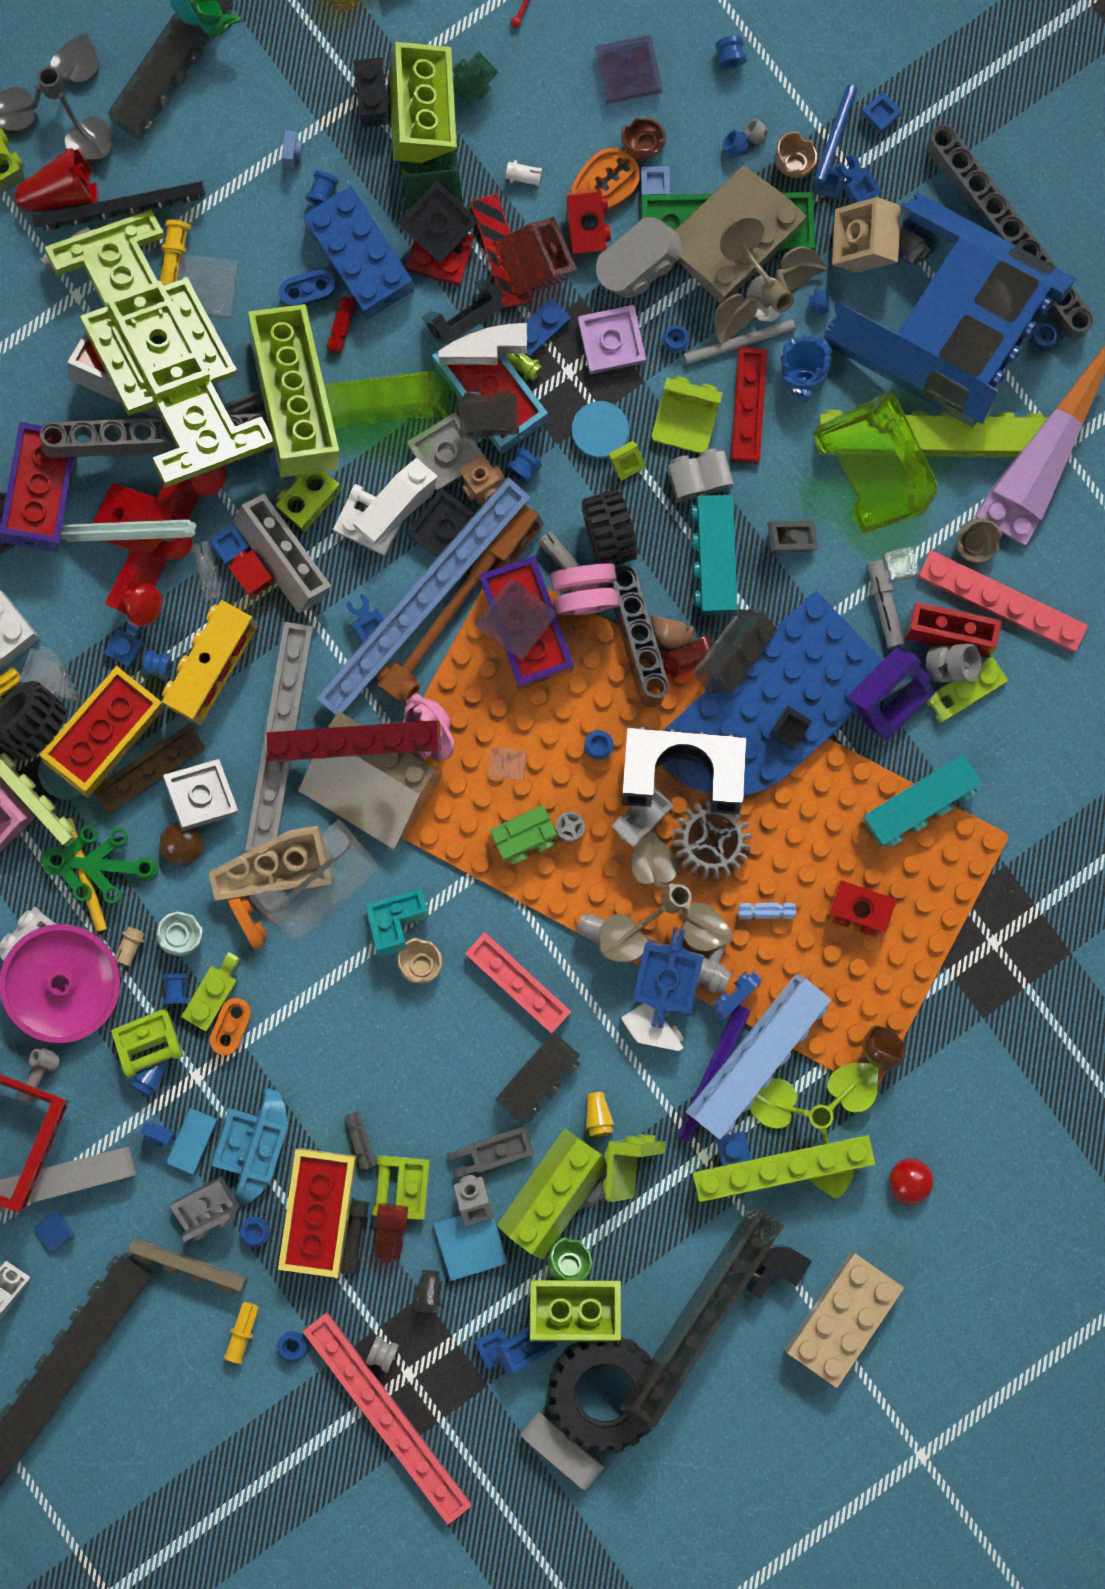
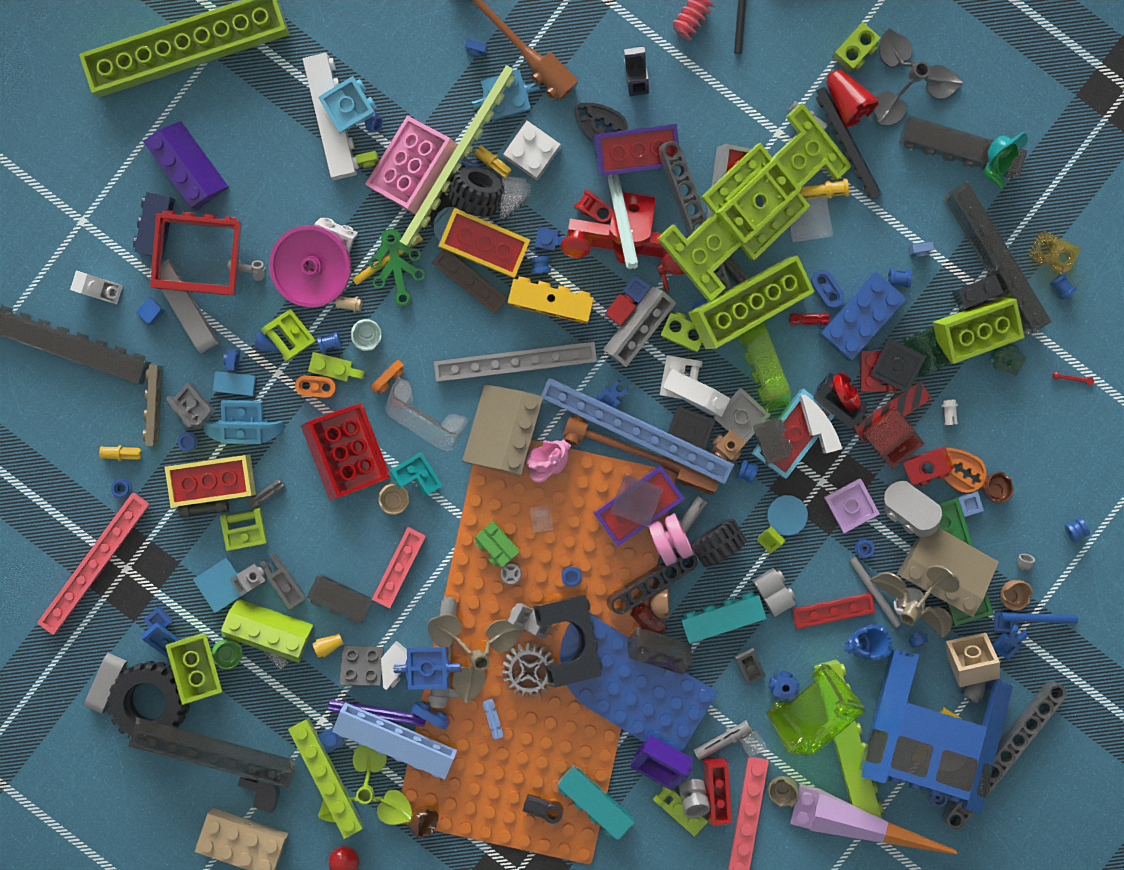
camera: 80 degrees right, 5 degrees up
(99, 570) = (592, 207): none -> red piece
(179, 846) = (426, 317): reddish brown hair -> none
(200, 795) = (461, 320): plate -> none
(206, 570) = (613, 279): clear axle -> none
(214, 503) = (662, 271): none -> red hand
(279, 862) = (428, 387): tan wedge -> none
(328, 54) = (996, 256): none -> clear smoke brick
(333, 1011) = (345, 451): none -> red slope
(354, 741) = (524, 414): dark red plate -> none
(382, 1354) = (133, 548): light grey wheel -> none
(391, 1225) = (213, 531): clear red piece -> none
(428, 1295) = (180, 567): clear smoke cone -> none
(454, 300) = (847, 394): none -> red tile
(525, 365) = (816, 452): lime pin -> none
(545, 325) = (849, 457): blue plate -> none
(622, 1164) = (299, 670): lime bracket -> none
(628, 69) = (1044, 463): clear purple plate -> none
(641, 1075) = (361, 666): none -> dark grey hinge
(686, 415) = (813, 571): lime bracket -> none
(735, 143) = (1013, 551): blue plate -> none
(790, 727) = (618, 702): black panel -> none
(828, 508) = (781, 679): none -> blue brick
(879, 908) = (516, 793): red brick -> none
(881, 112) = (1064, 644): blue plate -> none
(908, 878) = (540, 808): none -> black piece

